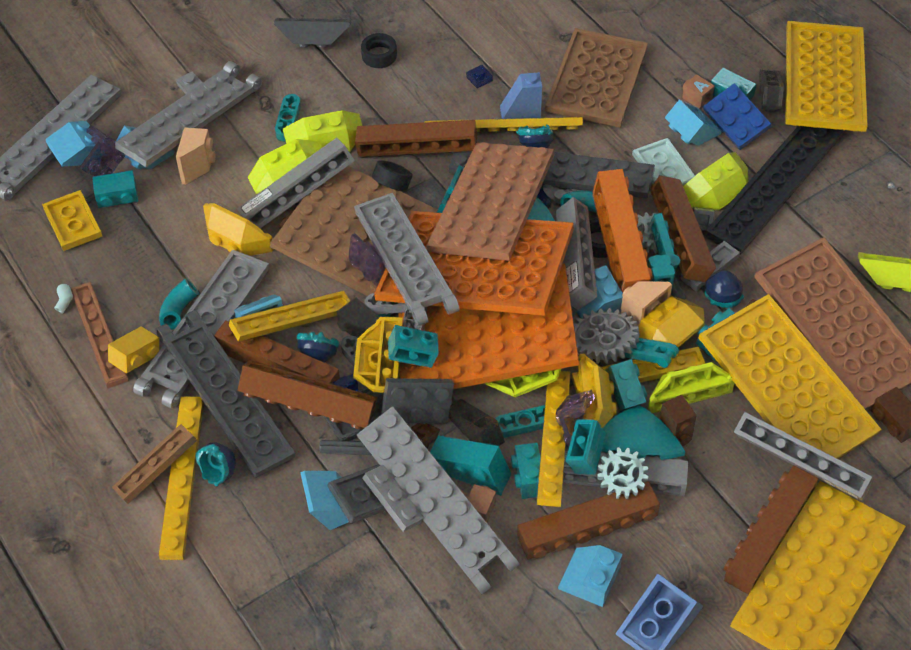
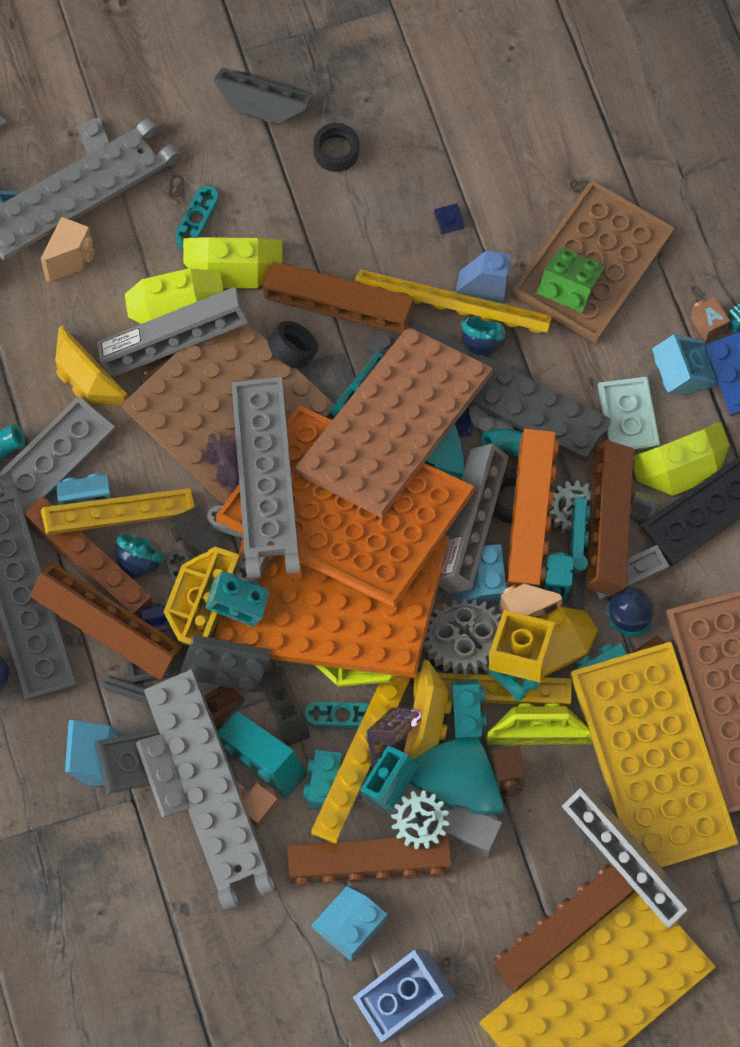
camera: 15 degrees right, 15 degrees up
(586, 88) = (570, 279): none -> bright green bracket
(656, 321) = (521, 646): none -> yellow brick

